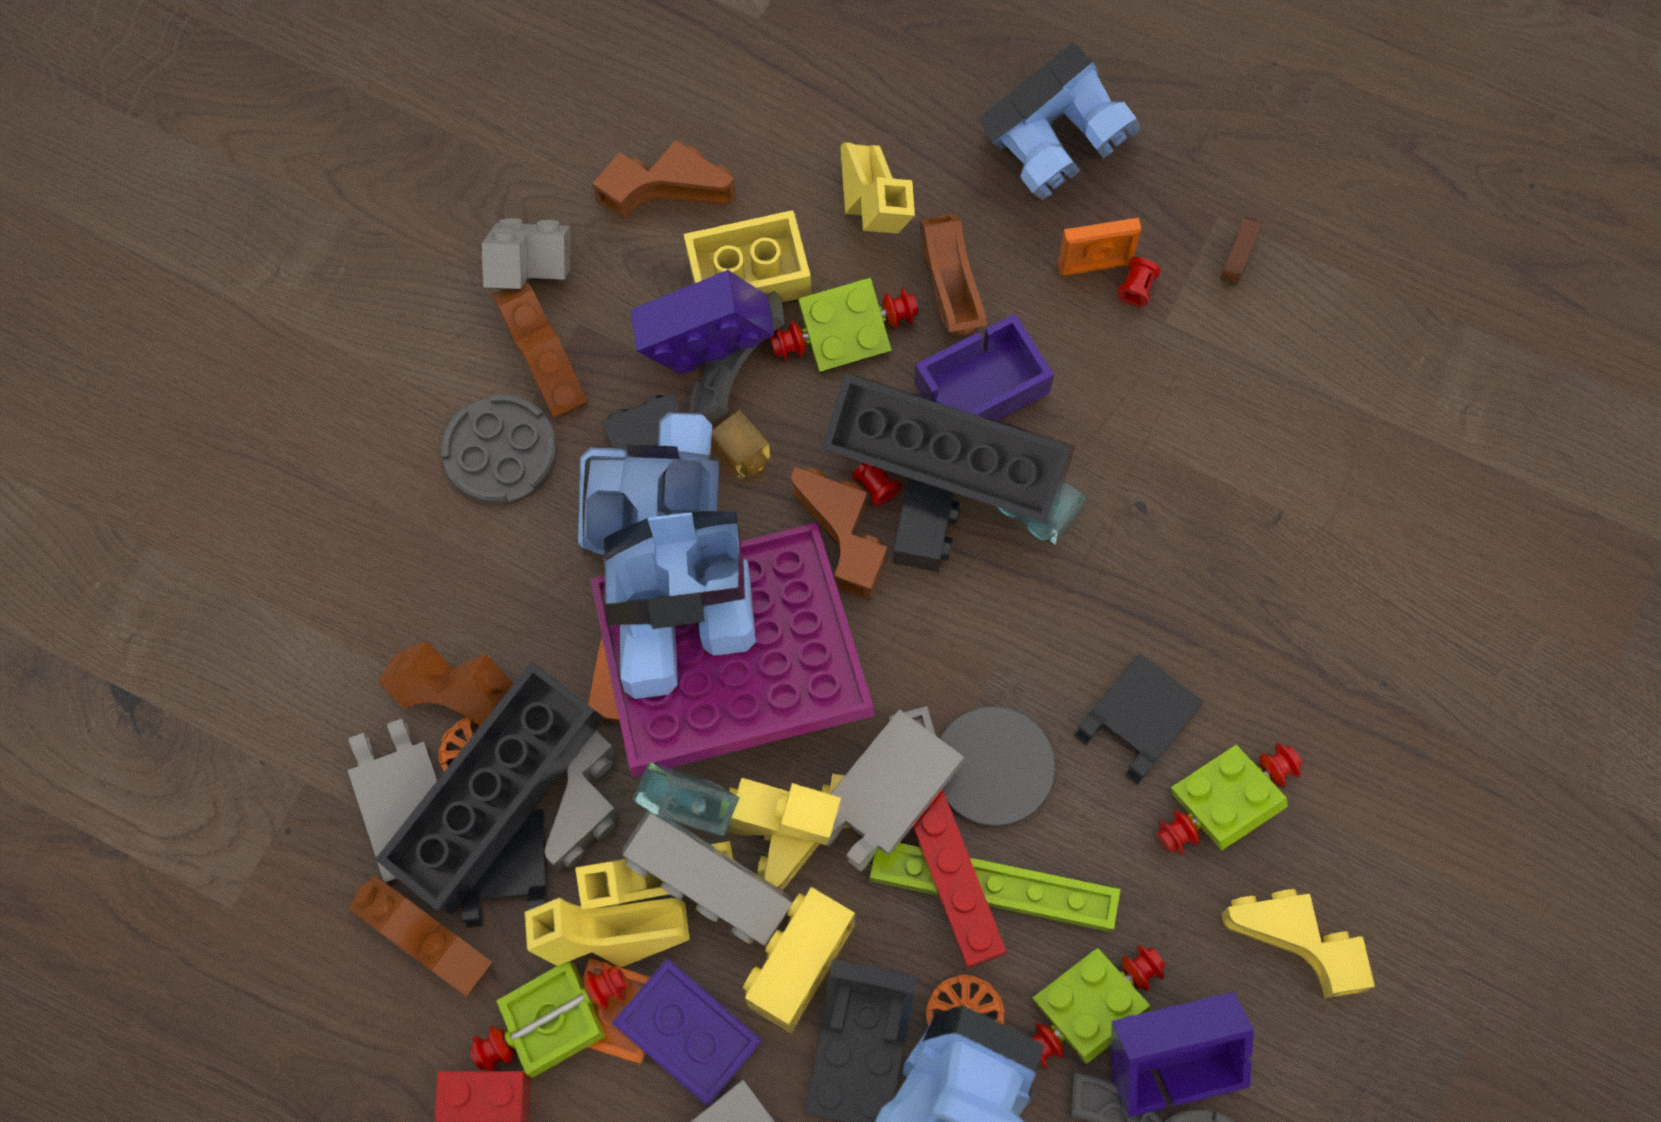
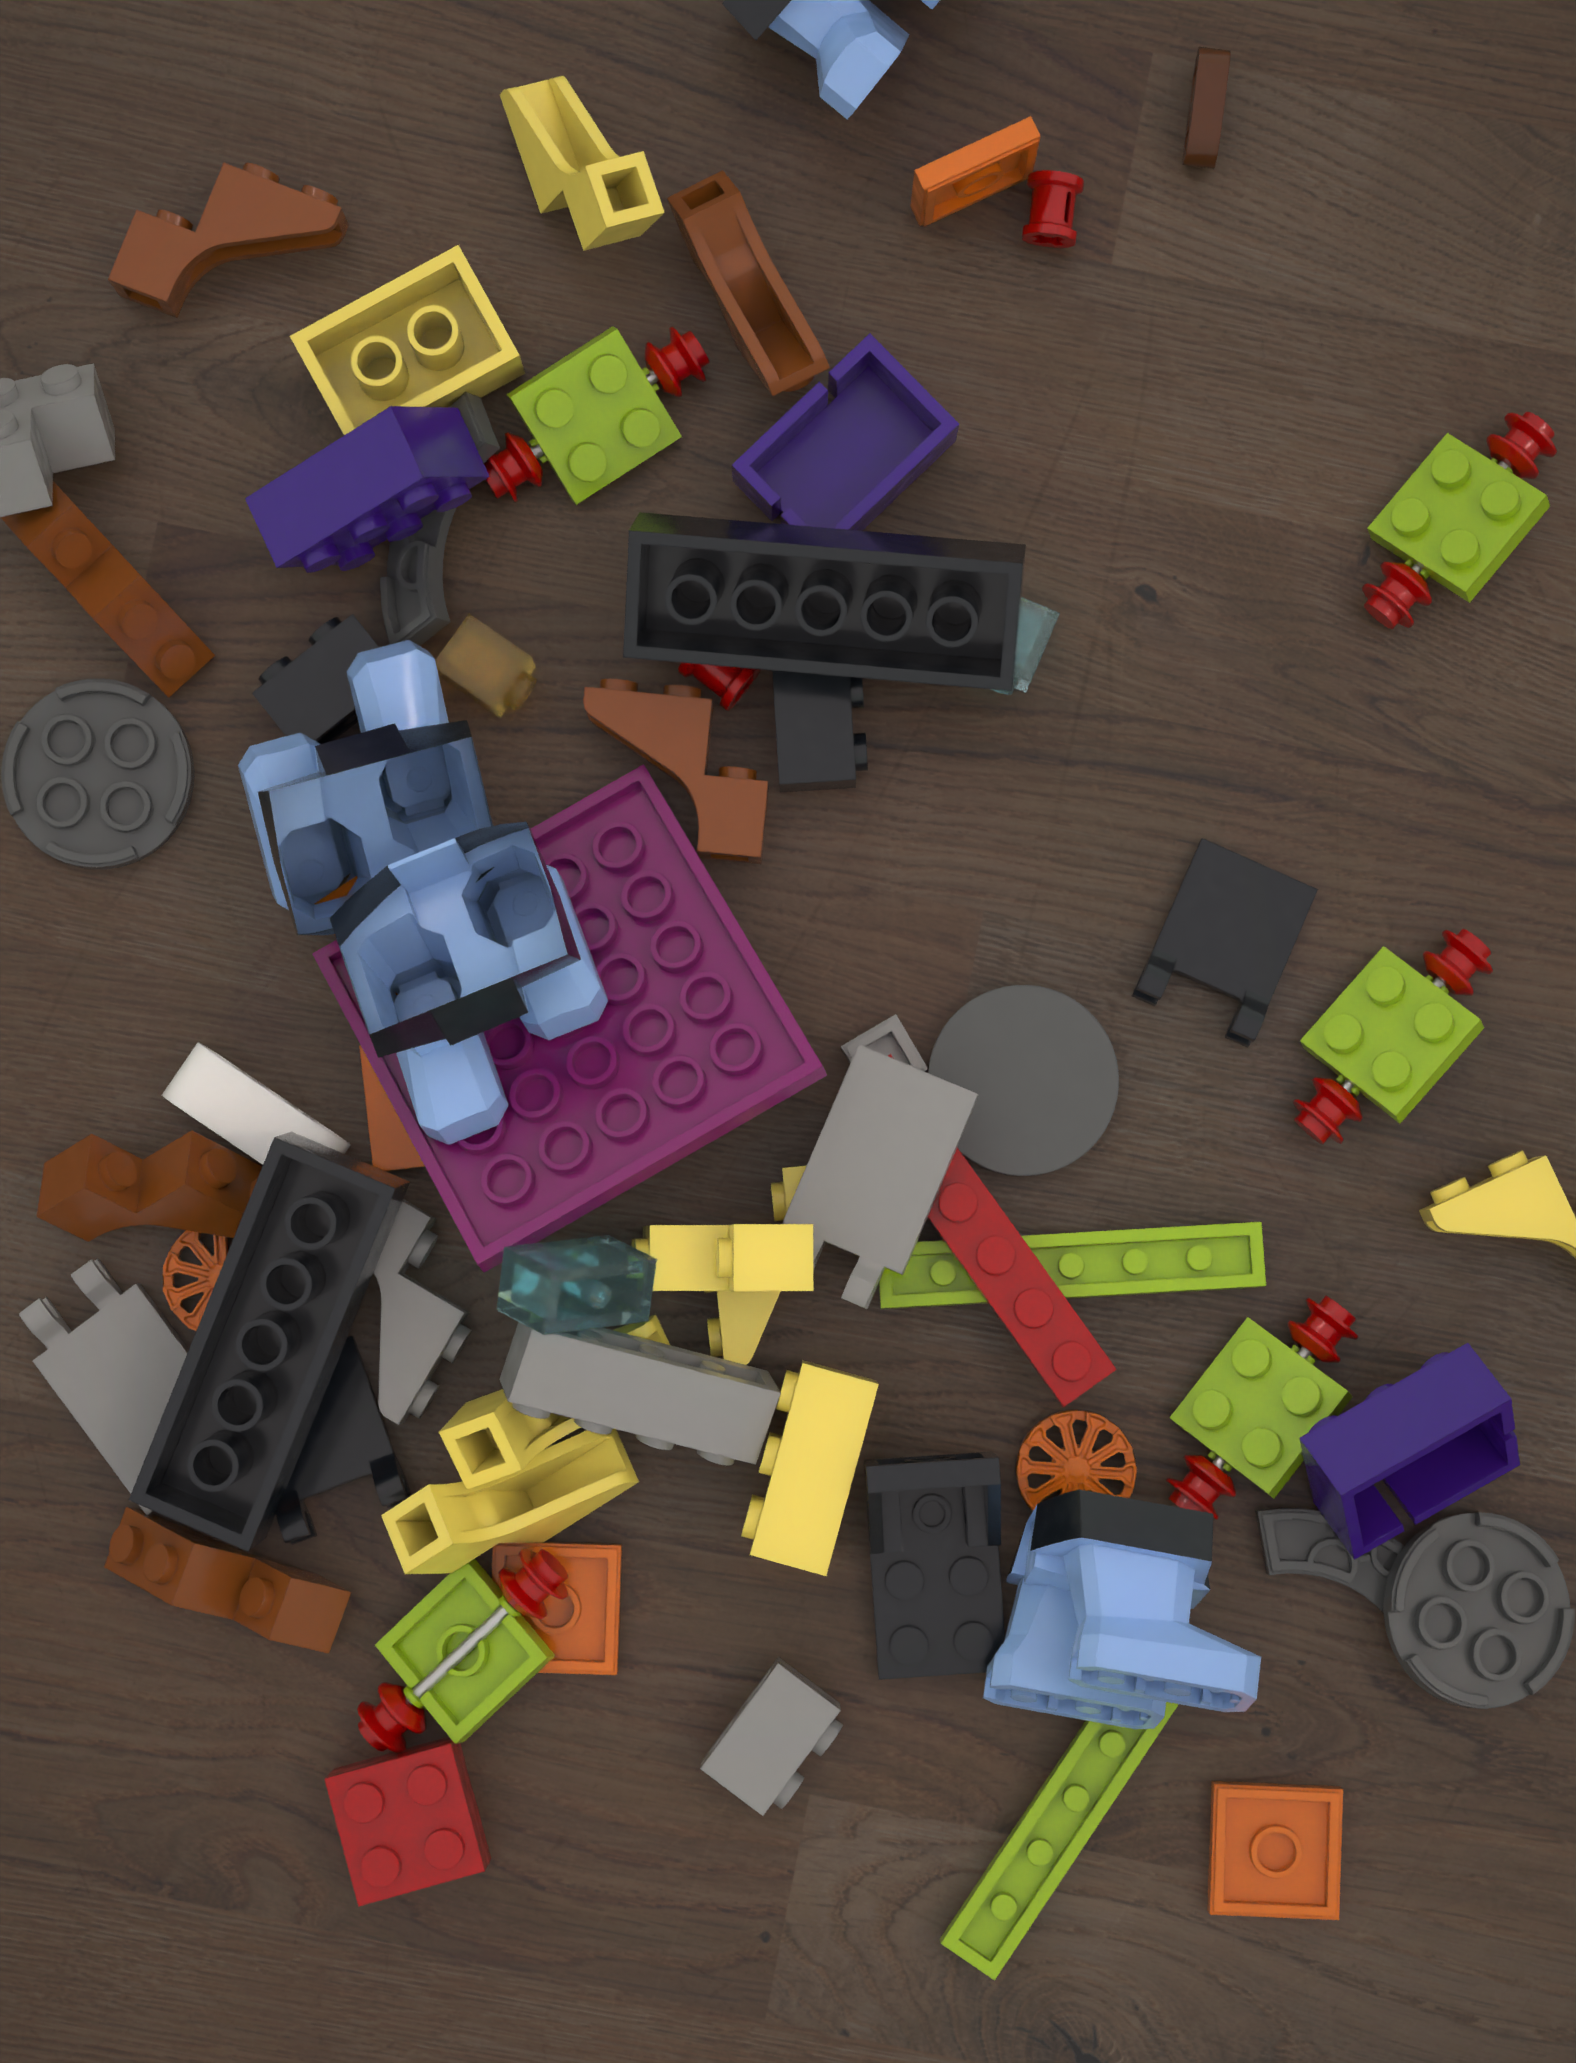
camera: 15 degrees left, 15 degrees up
(516, 649) = (240, 1106): none -> white beam
(687, 1032) = (671, 1611): dark purple tile -> none
(1338, 508) = (1459, 518): none -> lime plate

